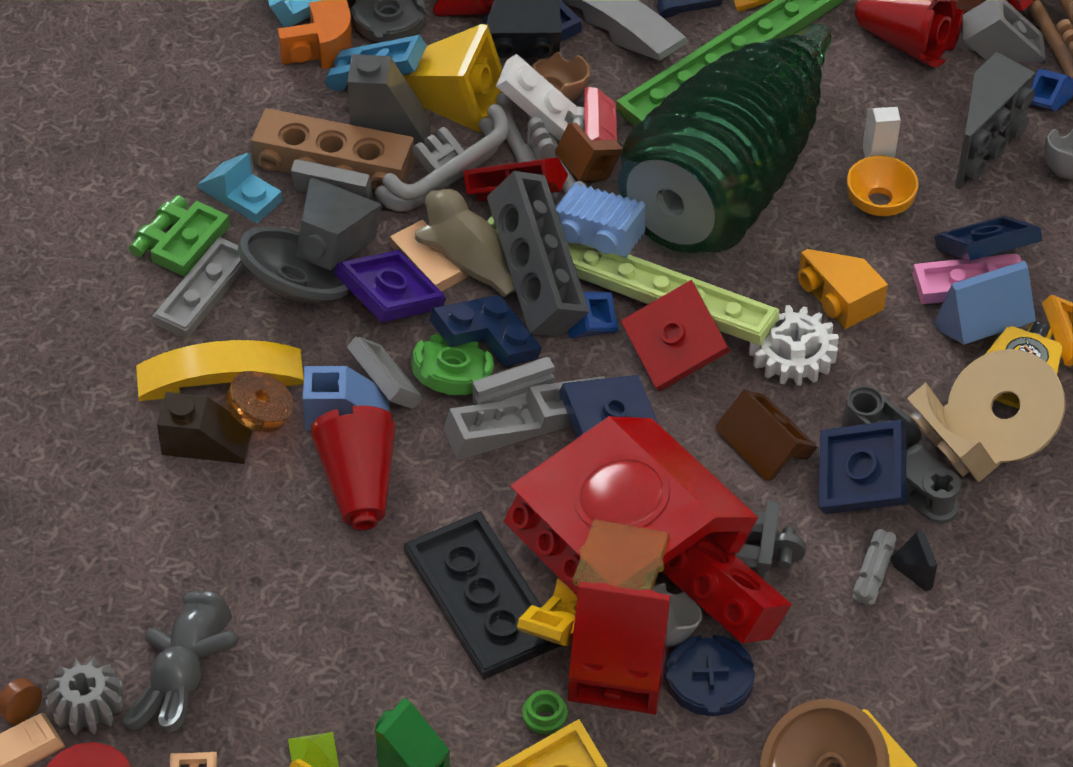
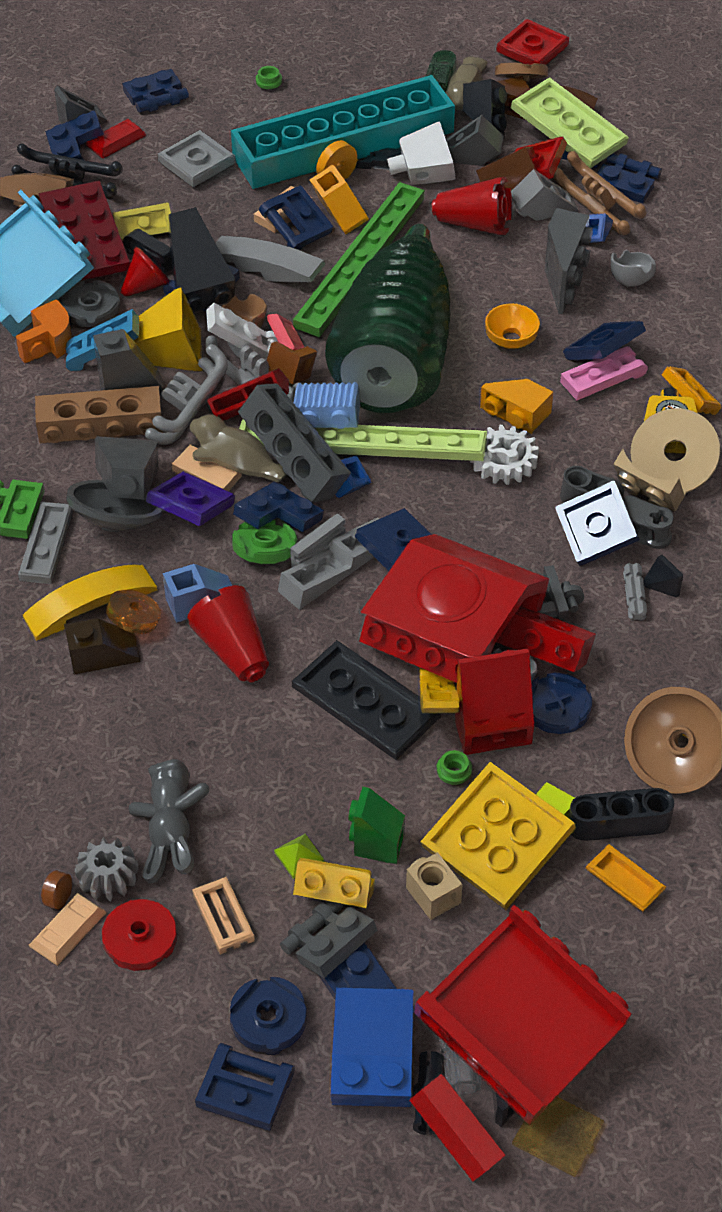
camera: 20 degrees left, 0 degrees up
(240, 189) = (35, 461): medium azure slope -> none
(349, 180) = (87, 434): light grey tile -> none
(385, 372) = (217, 562): light grey tile -> none
(622, 555) = (471, 634): piece -> none
(675, 335) = (419, 471): red plate -> none
(763, 434) = (512, 524): reddish brown panel -> none
(881, 131) = (496, 288): white piece -> none
(987, 304) = (628, 386): medium blue slope -> none

